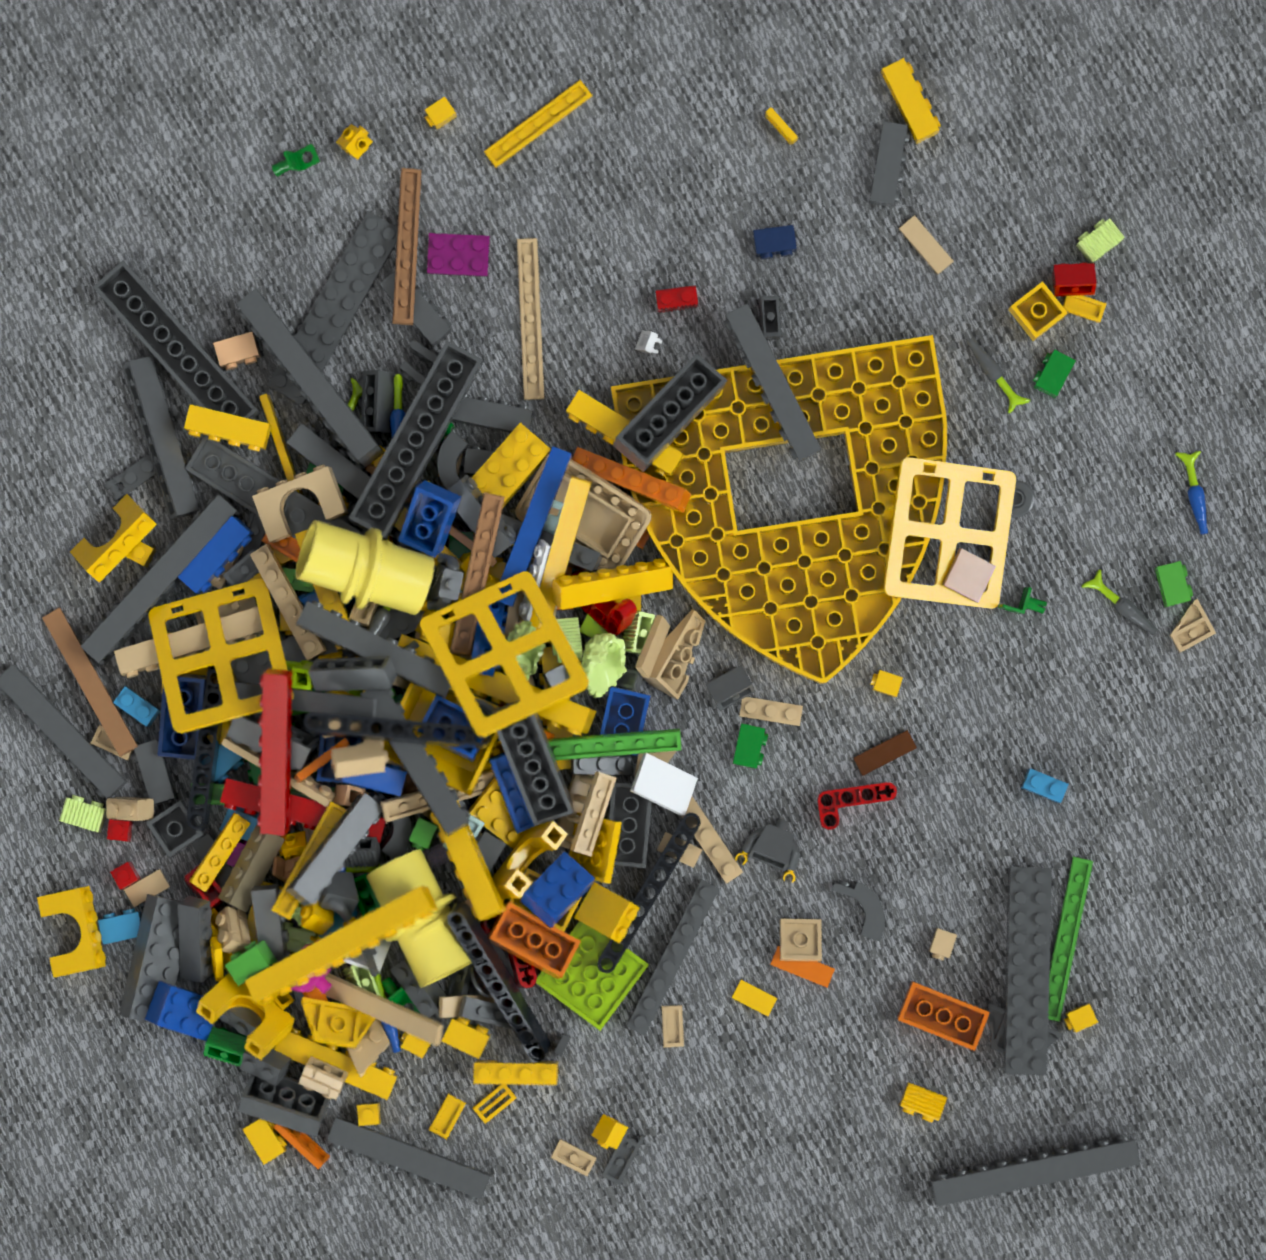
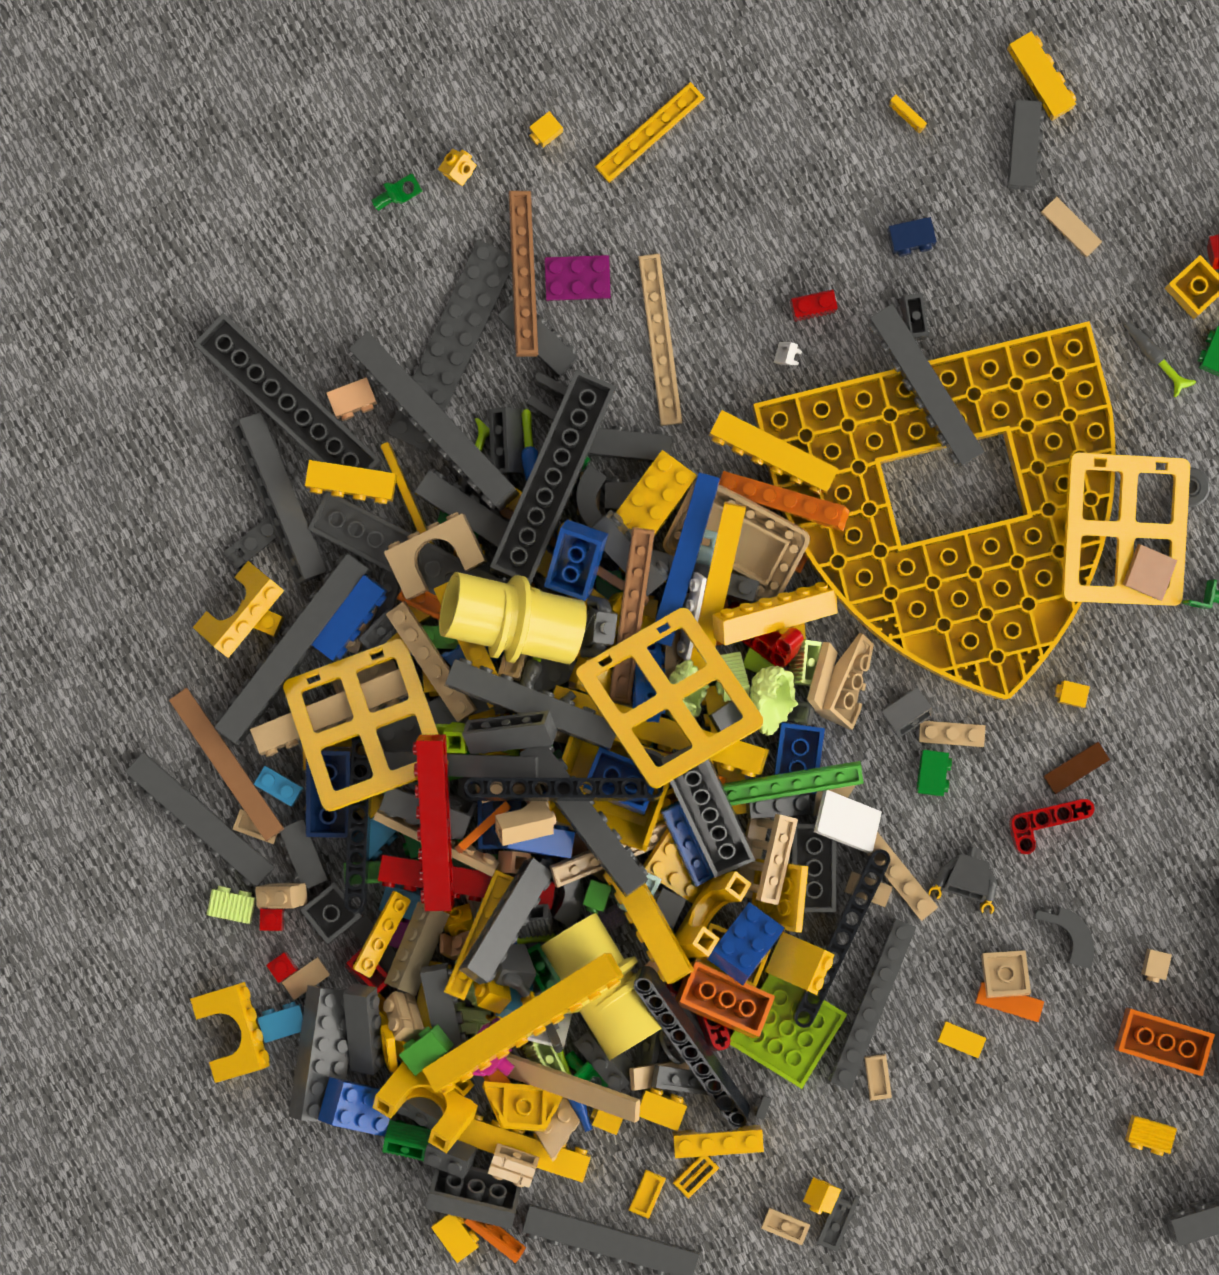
camera: 15 degrees left, 0 degrees up
(369, 1114) = (564, 1199): yellow brick -> none
(669, 412) = (821, 426): dark grey brick -> none

